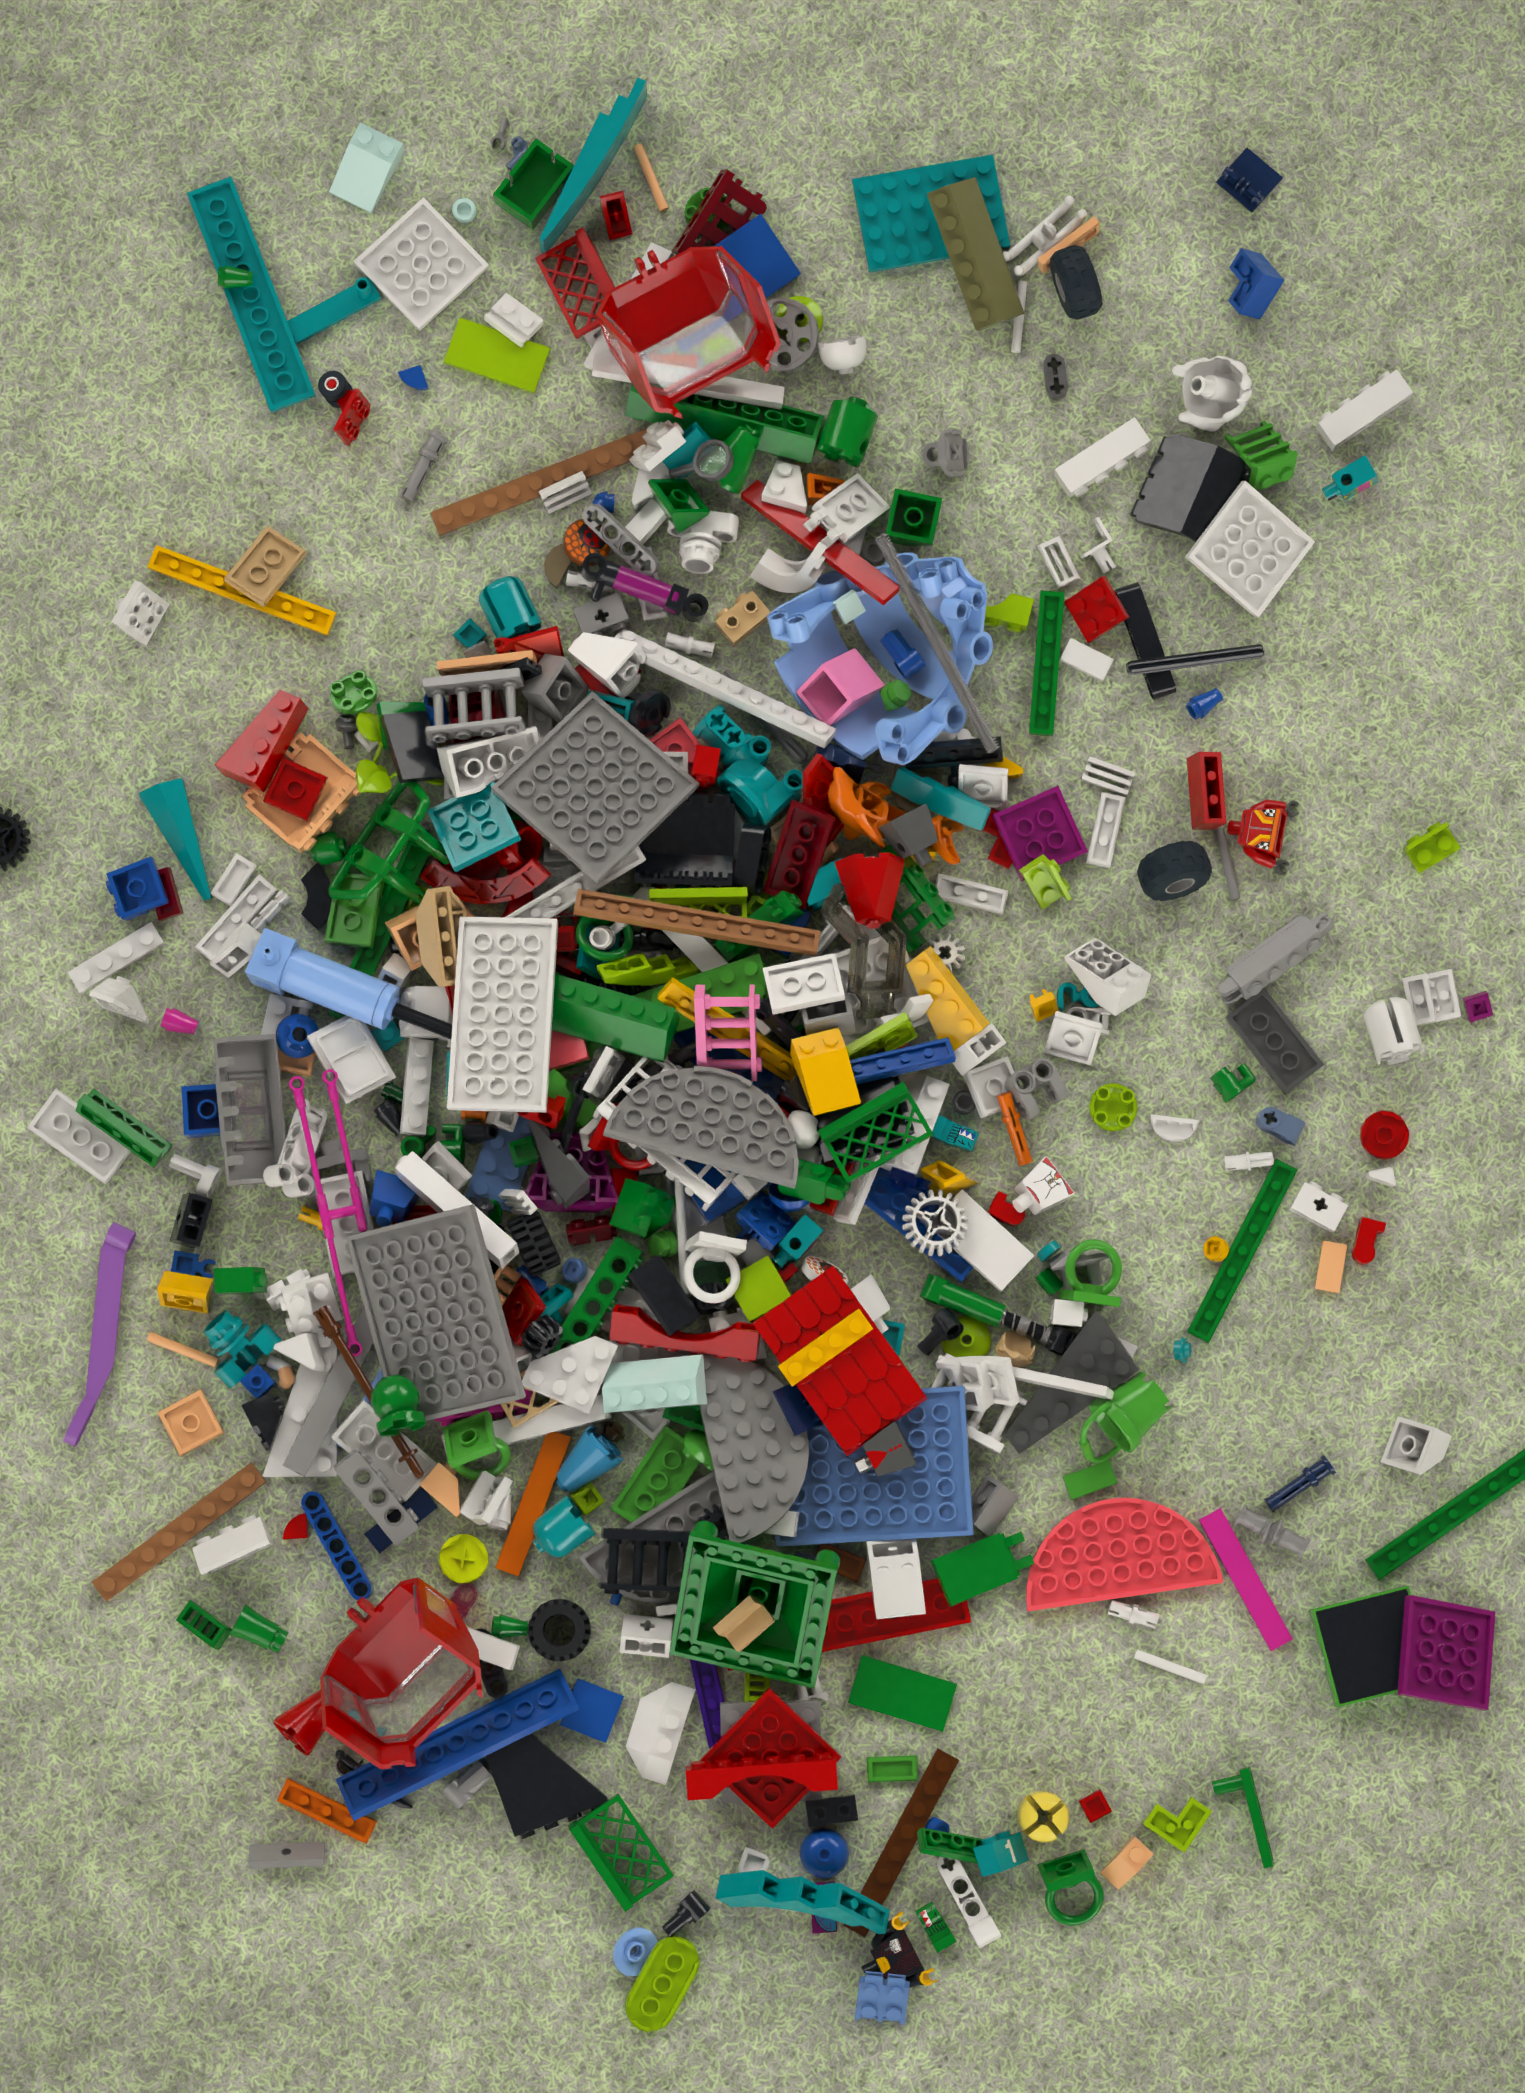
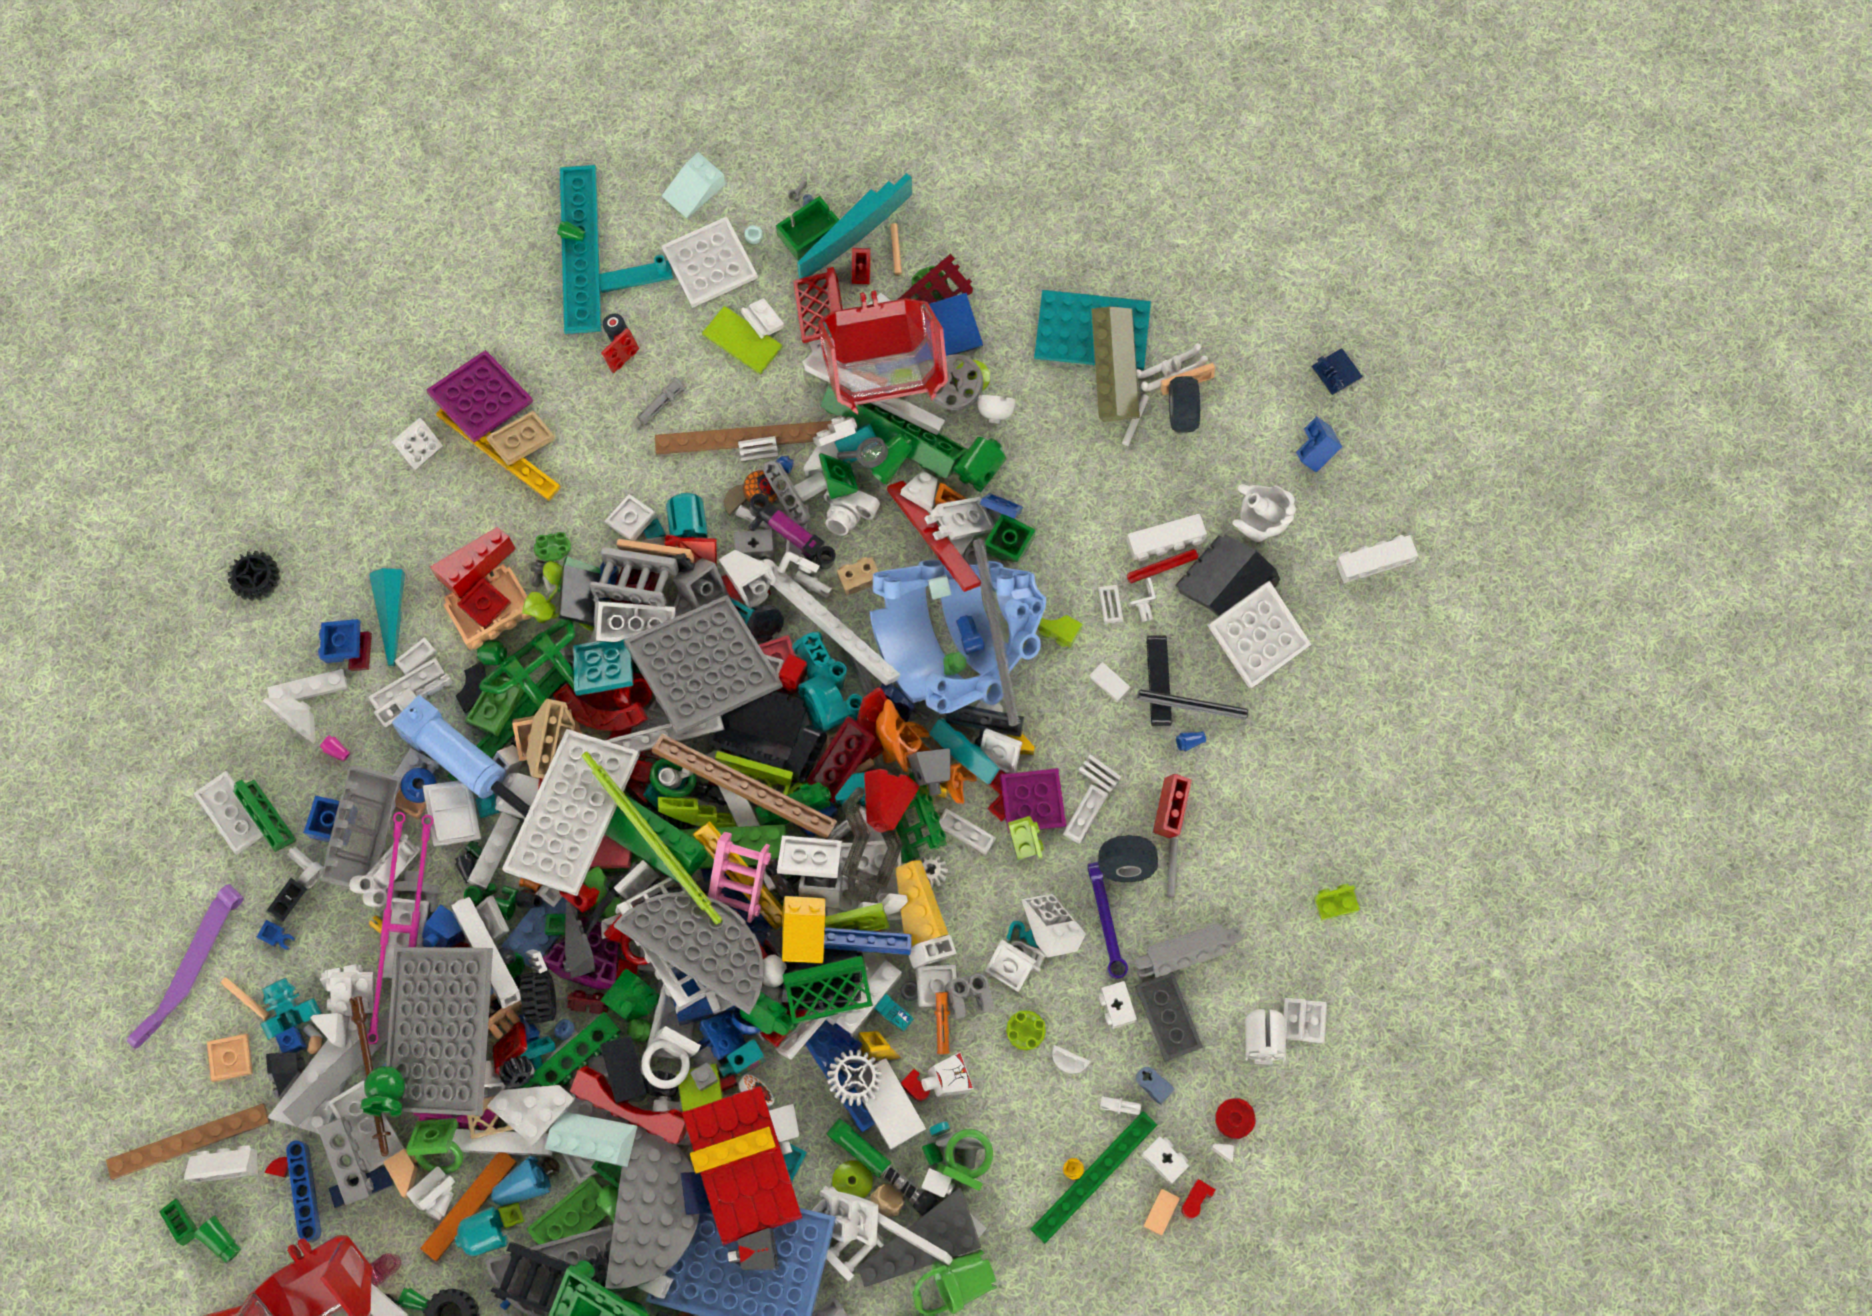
camera: 20 degrees right, 10 degrees down
(185, 1291) = (261, 953): yellow slope -> none
(195, 527) = (479, 396): none -> magenta plate
(240, 1280) = (304, 957): green slope -> none
(414, 378) = (677, 338): blue tile -> none
(437, 628) = (630, 518): none -> white tile
(463, 1558) = (398, 1233): neon yellow tile -> none
(610, 1017) = (652, 838): none -> lime axle
(673, 626) = (804, 564): none -> white plate
(711, 1272) = (665, 1062): clear green tile -> none
(761, 1275) = (704, 1076): none -> light grey plate
(789, 575) = (902, 554): white arch -> none
(840, 687) = (913, 645): bright pink slope -> none
(890, 478) = (1001, 505): none -> blue tile
(945, 1328) = (838, 1165): black pin -> none
(952, 453) = (1053, 501): light grey tile -> none
(1043, 1006) = (995, 933): yellow tile -> none
(1046, 663) = (1078, 675): green plate -> none
(1060, 376) = (1144, 469): flat silver beam -> none
(1096, 609) = (1128, 646): red plate -> none
(1107, 495) = (1162, 566): none -> red axle
(1143, 905) = (1096, 879): none -> dark purple piece
(1182, 1350) = (1021, 1242): teal plate -> none
(1223, 1052) = (1119, 993): none -> white brick
(1228, 1084) = (1122, 1041): green piece -> none
(1263, 831) = (1207, 850): red torso -> none
(1268, 465) = (1292, 570): bright green plate -> none
(1361, 475) = (1359, 604): teal torso -> none
(1477, 1006) = (1338, 1038): magenta tile -> none

